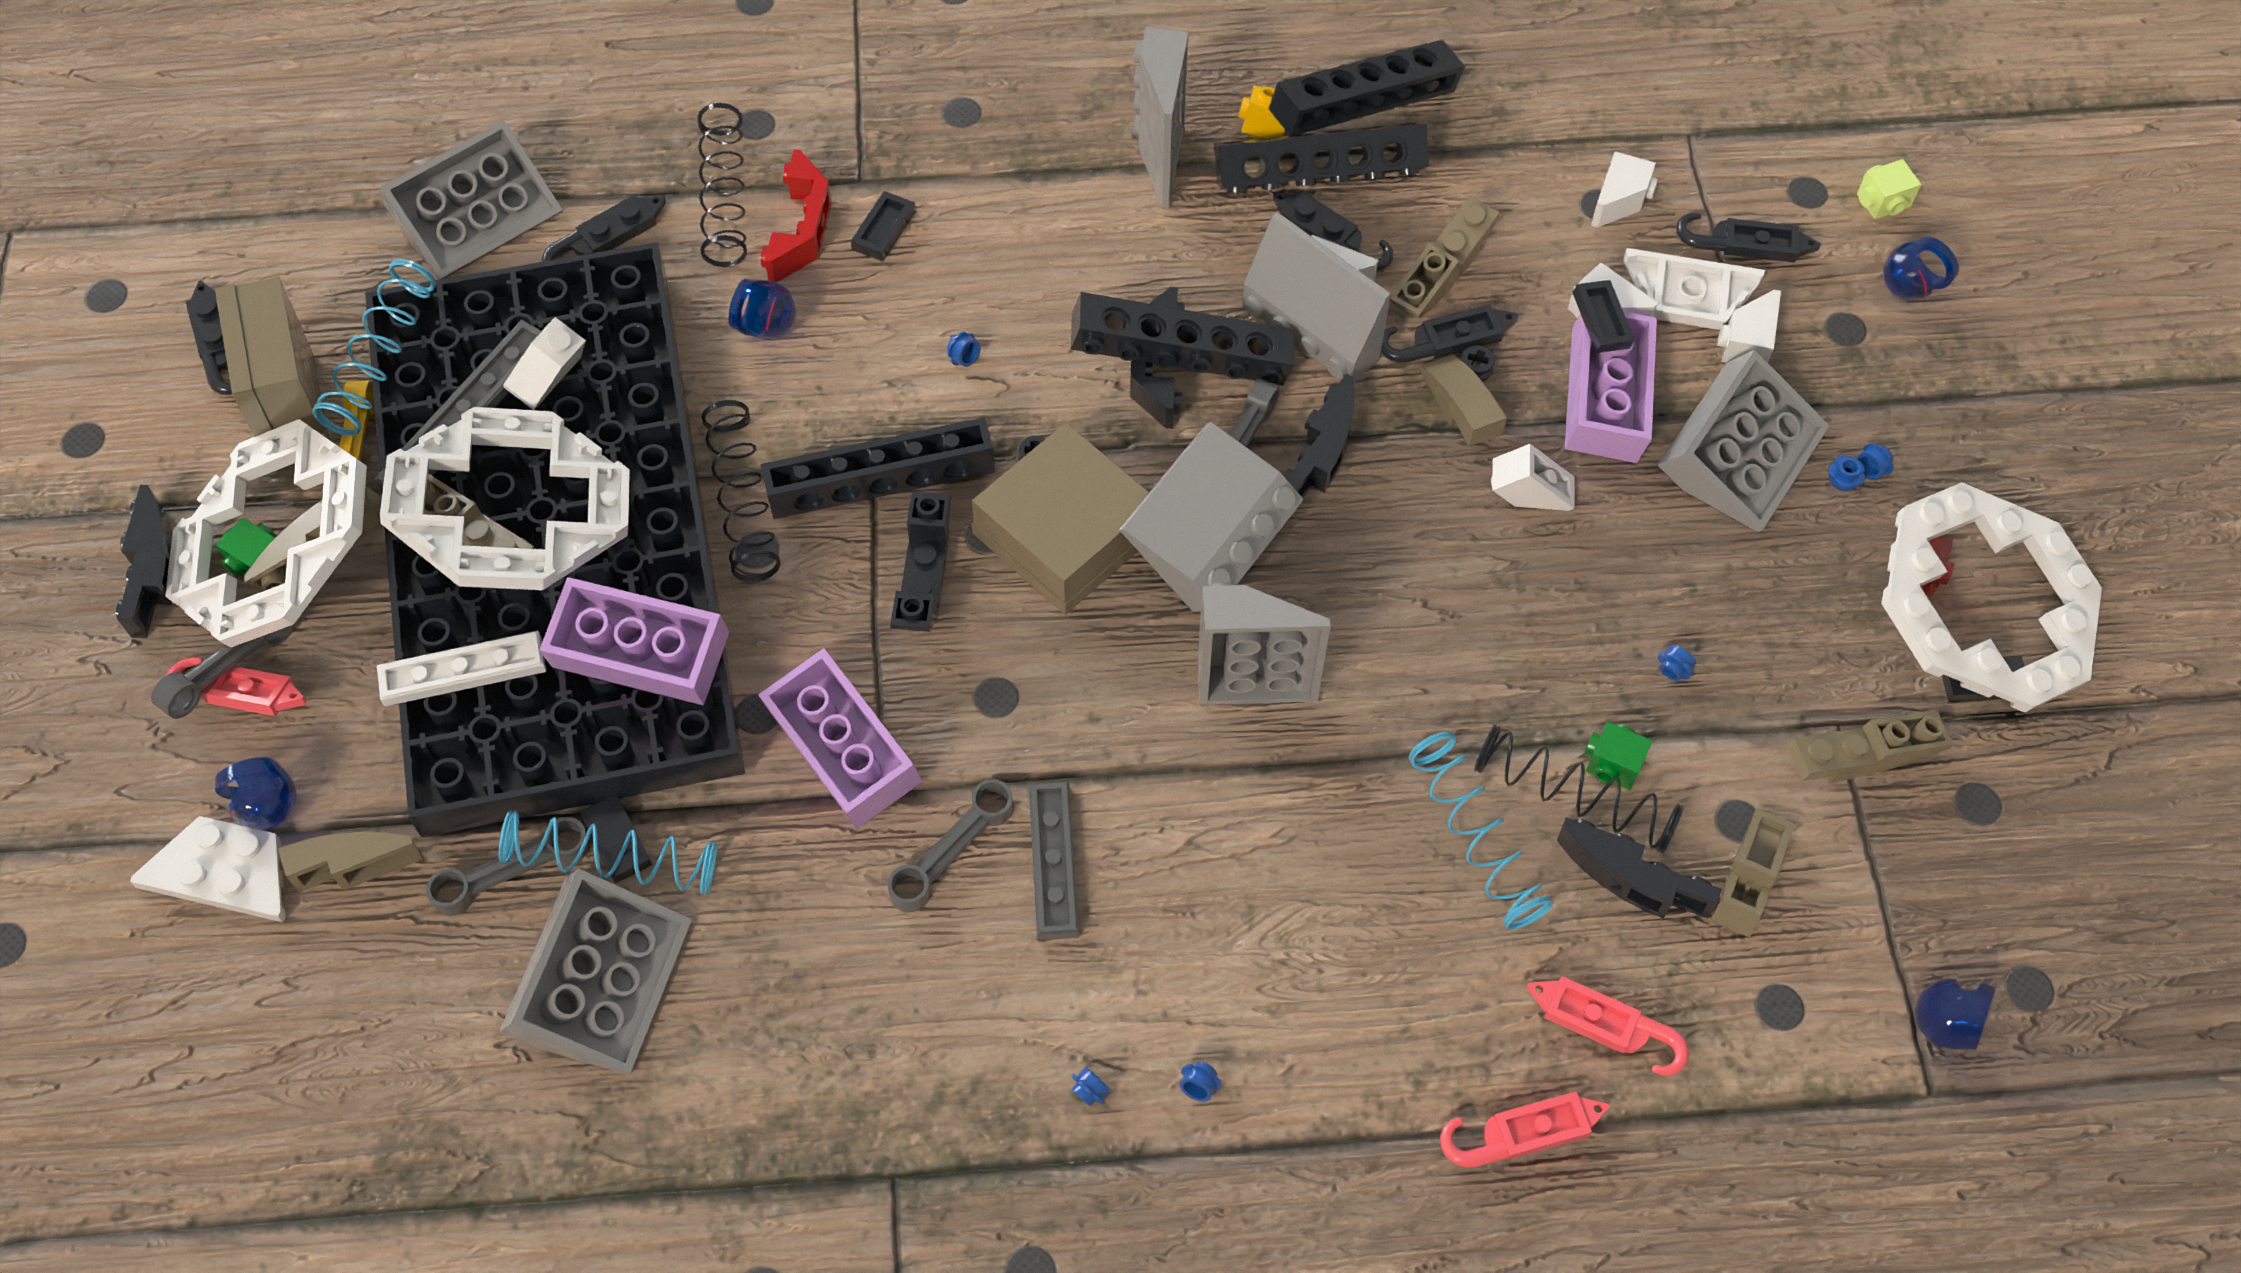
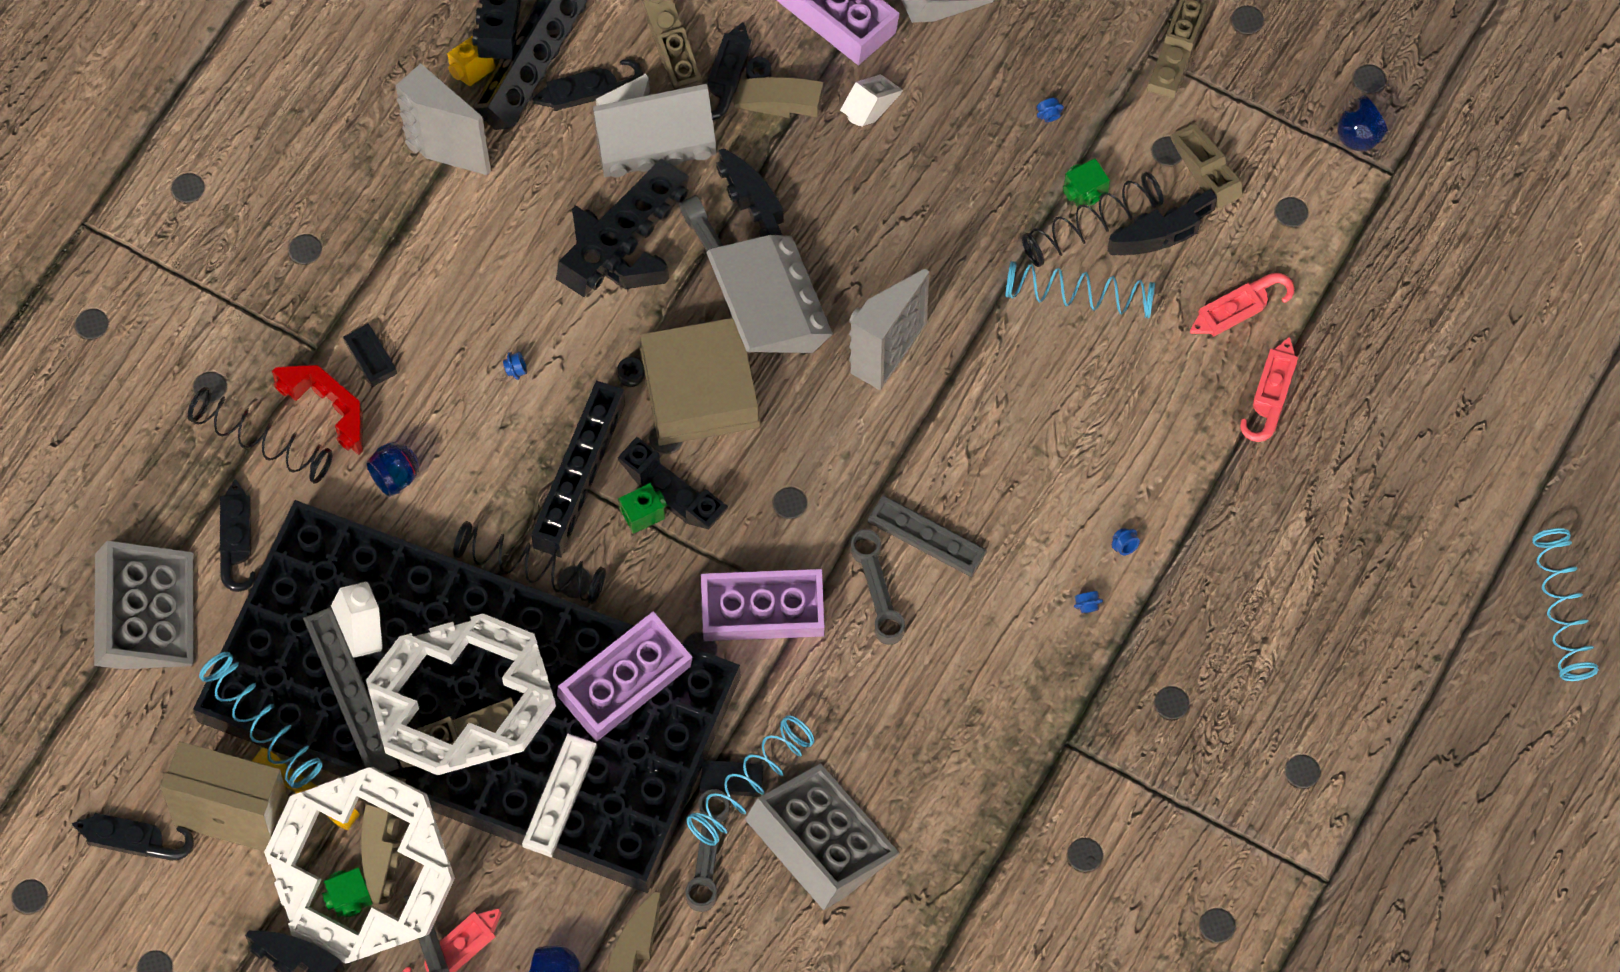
camera: 55 degrees left, 5 degrees up
(876, 554) = (642, 508): none -> green brick

